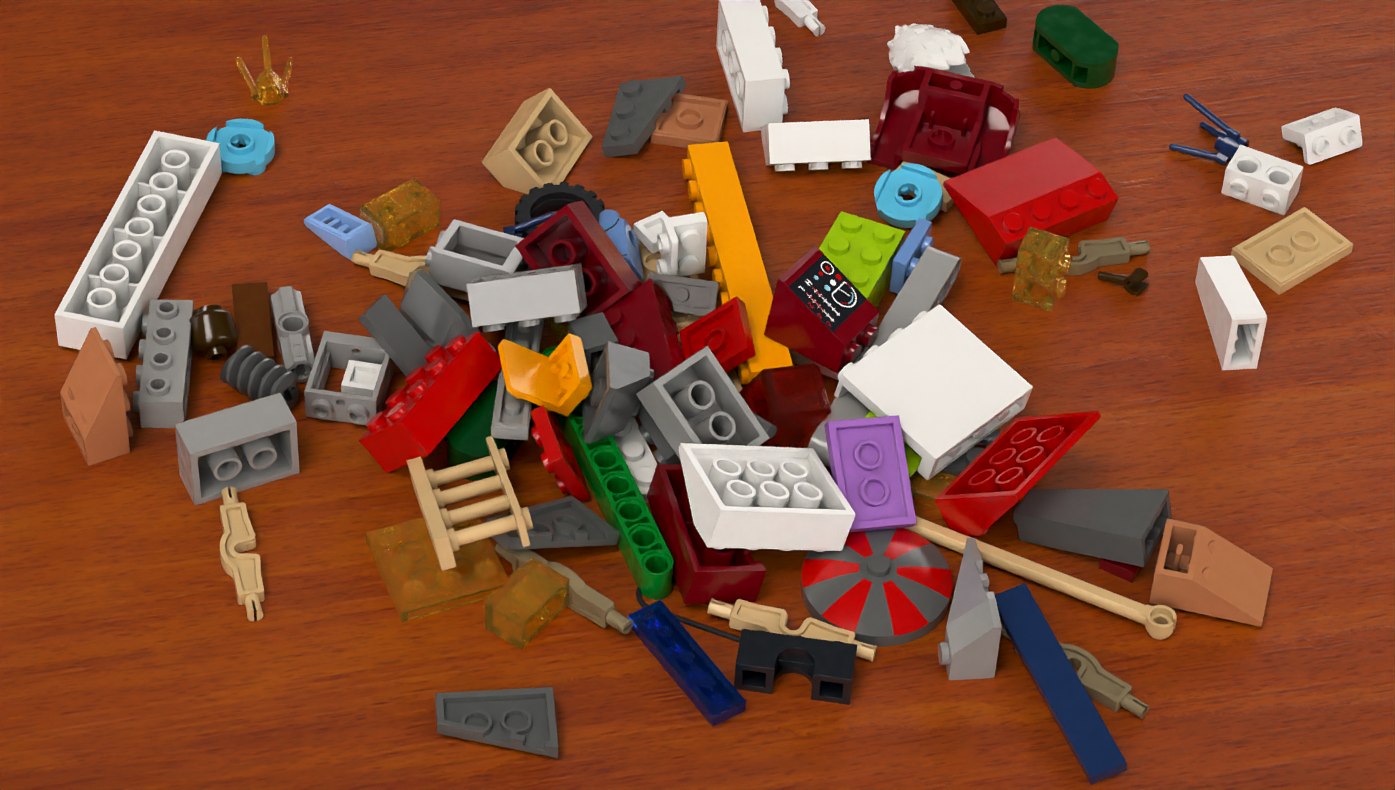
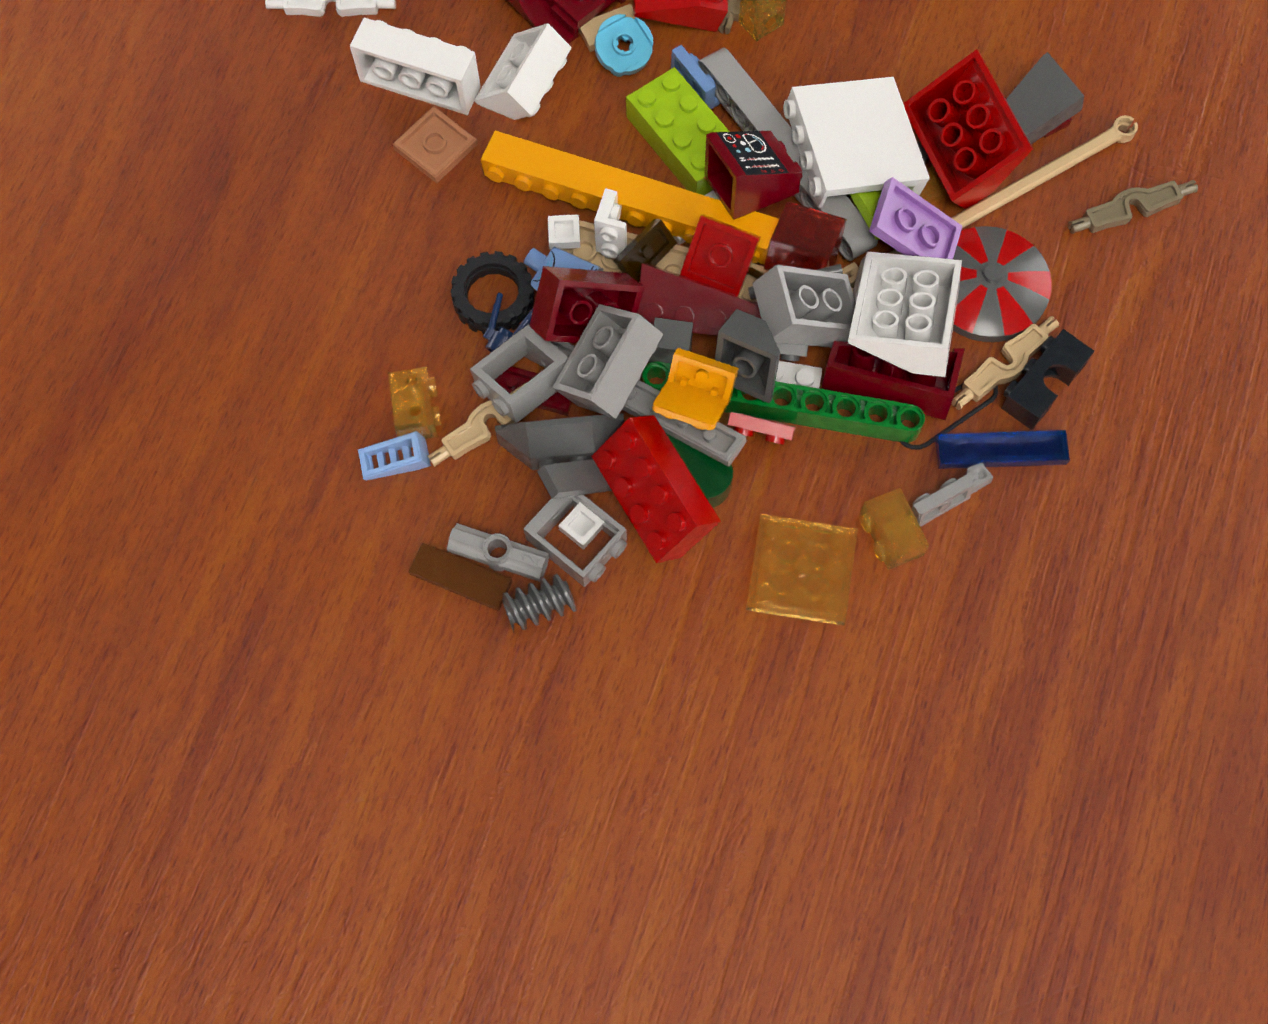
camera: 55 degrees left, 25 degrees up
(96, 402) = (503, 746): nougat slope -> none
(139, 242) = (323, 621): white brick -> none
(166, 364) = (471, 666): light grey brick -> none
(212, 332) = (460, 613): dark brown head -> none
(237, 448) = (614, 659): light grey brick -> none
(242, 567) = (728, 715): tan piece -> none
(253, 157) = (252, 501): medium azure plate -> none
(269, 86) = (188, 425): clear yellow plant -> none
(440, 521) = (796, 548): tan fence -> none
(503, 717) = (989, 604): dark grey wing -> none
(537, 144) = (398, 265): tan slope -> none
(560, 524) = (826, 470): dark grey wing -> none
(581, 597) = (908, 484): dark tan piece -> none
(599, 638) = (950, 494): none -> light grey hinge
(635, 112) = (406, 173): dark grey wing -> none
(972, 623) = (1071, 244): light grey wedge -> none
(1059, 684) = (1150, 223): dark blue tile -> none
(1209, 575) = (1107, 77): nougat slope -> none

